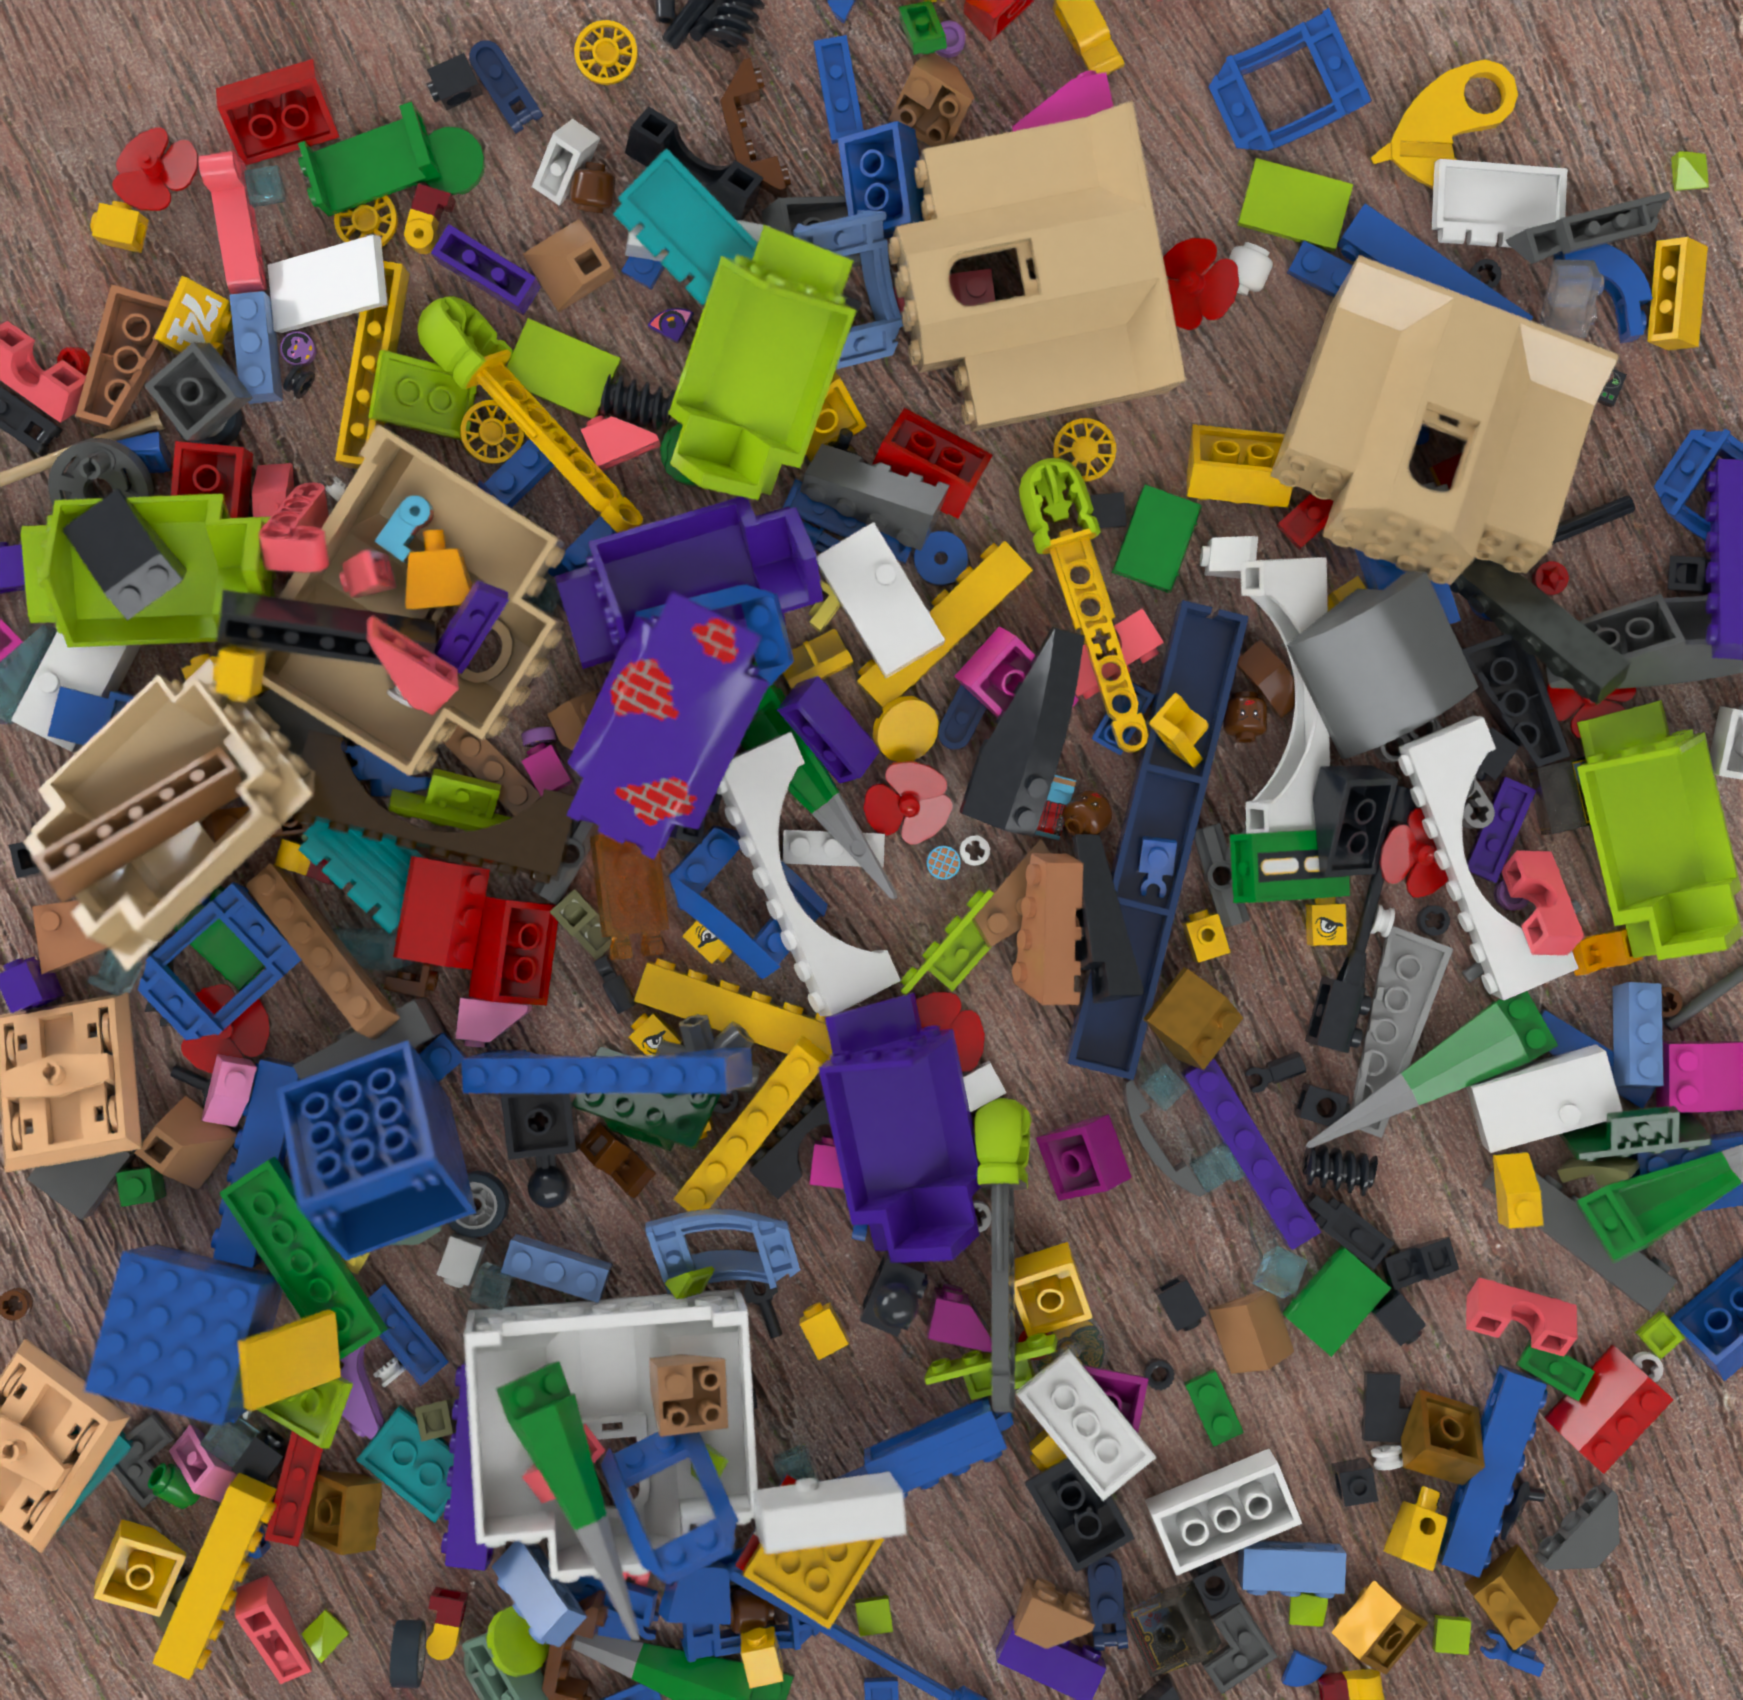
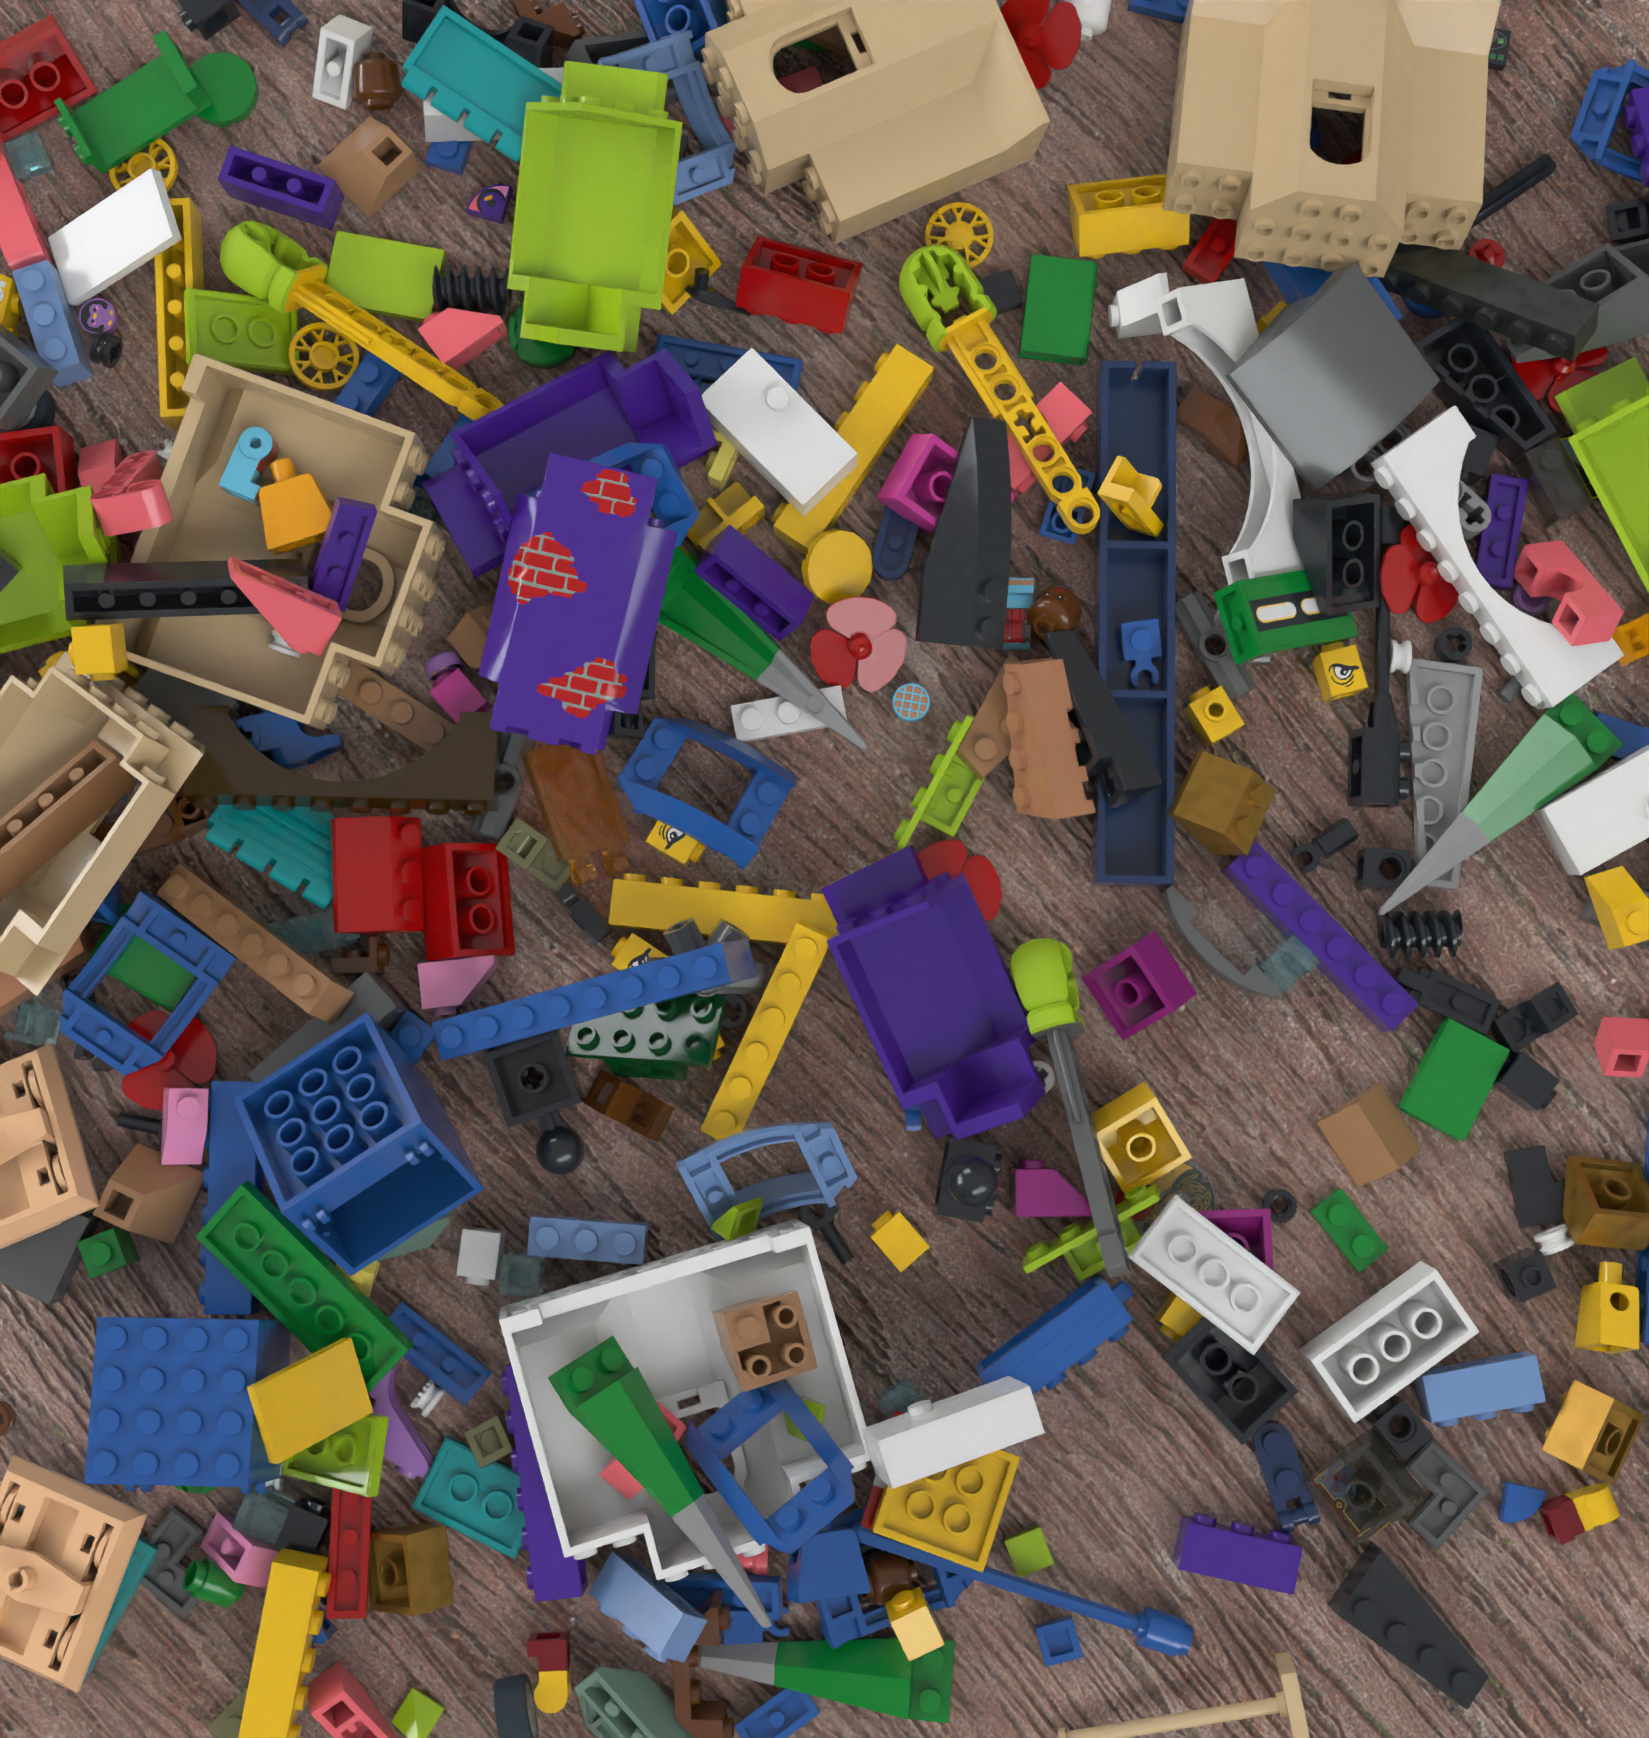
camera: 10 degrees left, 5 degrees down
(139, 1569) = (193, 1687): yellow slope -> none
(293, 860) = (206, 856): yellow leg -> none
(367, 574) = (217, 520): coral slope -> none
(425, 217) = (205, 149): leg -> none
(452, 802) = (361, 751): lime bracket -> none
(494, 1206) = (504, 1192): wheel -> none
(513, 1646) = (633, 1674): lime tile -> none
(754, 797) = (814, 837): white arch -> none
(780, 1165) = (808, 1069): black arch -> none
(825, 1164) = (860, 1055): dark pink brick -> none
(875, 494) = (725, 325): dark grey wedge -> none
(946, 573) = (832, 366): blue piece -> none
(982, 1086) = (1011, 930): white brick -> none
(983, 844) = (950, 674): white bush -> none
(1049, 1615) = (1225, 1503): medium nougat slope -> none
(1164, 1087) = (1208, 888): clear light blue plate -> none
(1180, 1303) = (1284, 1121): black brick -> none
(1245, 717) = (1198, 473): reddish brown head -> none
(1280, 1272) = (1384, 1060): clear light blue brick -> none
(1307, 1610) = (1508, 1431): lime slope -> none

